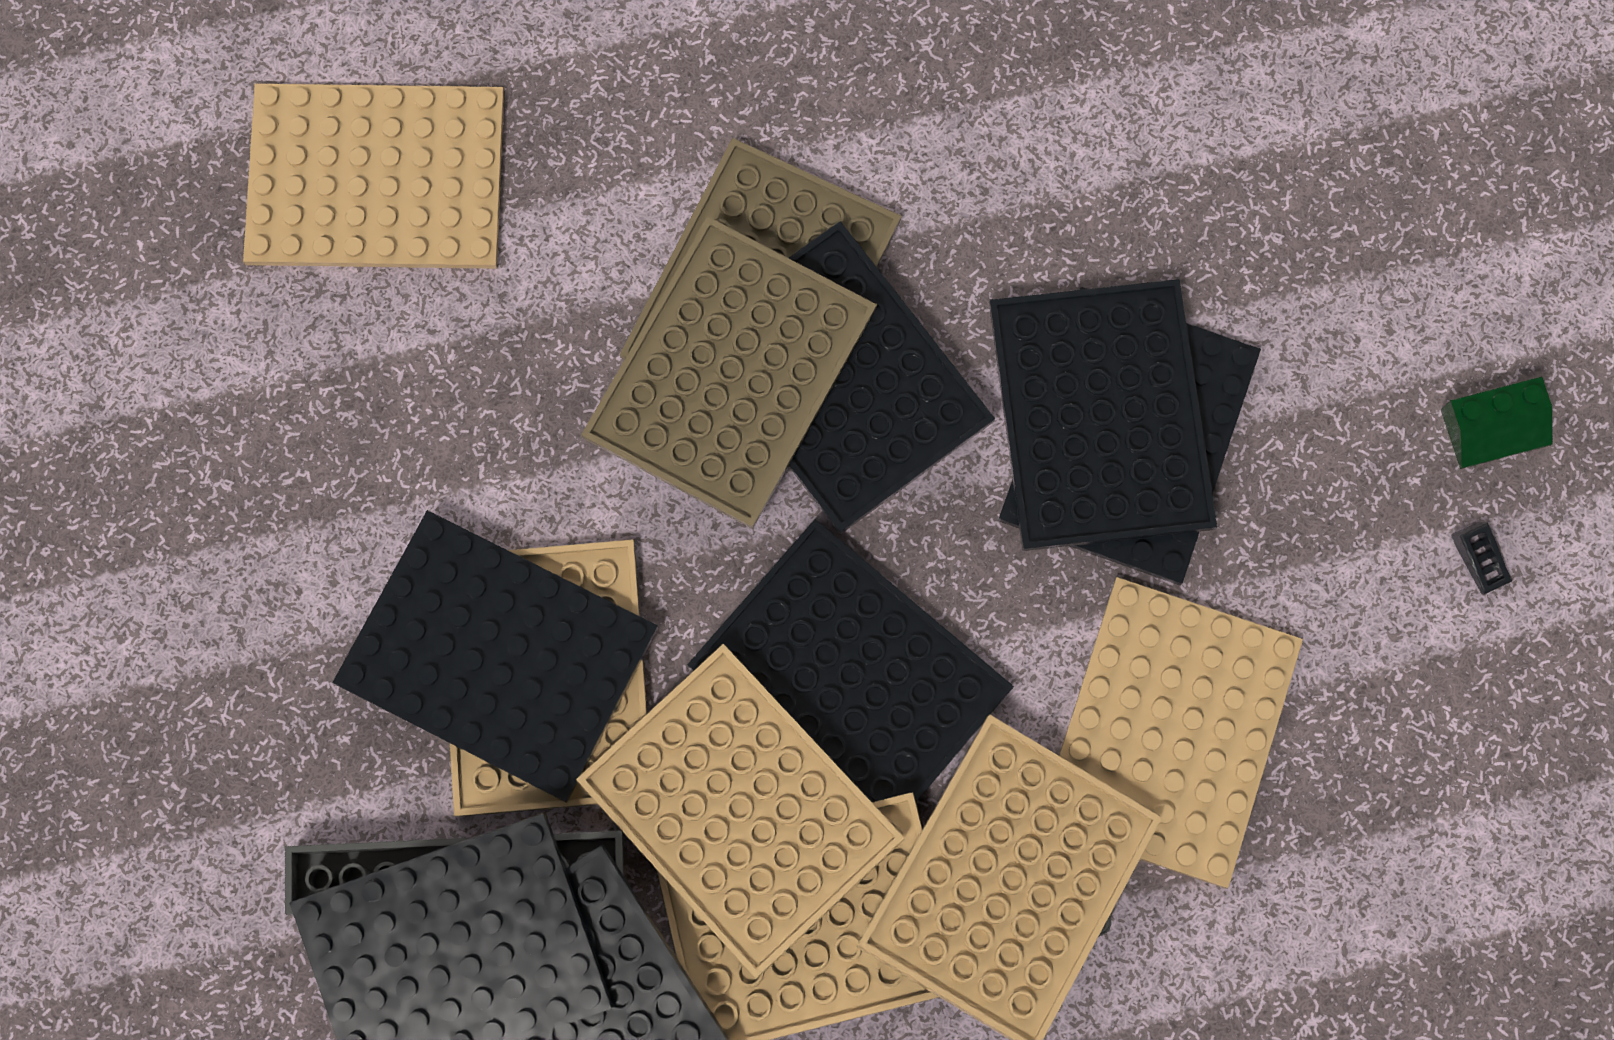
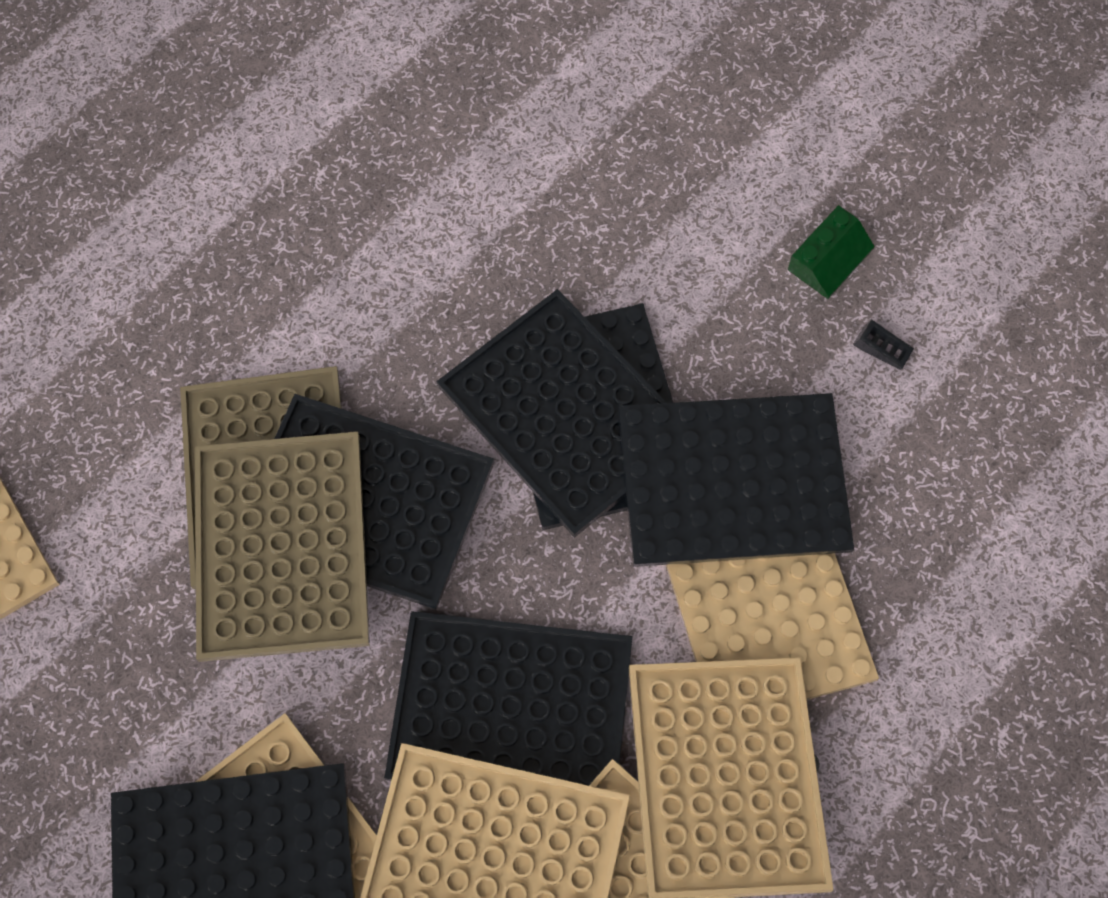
camera: 30 degrees left, 10 degrees down
(1223, 598) = (734, 479): none -> black plate

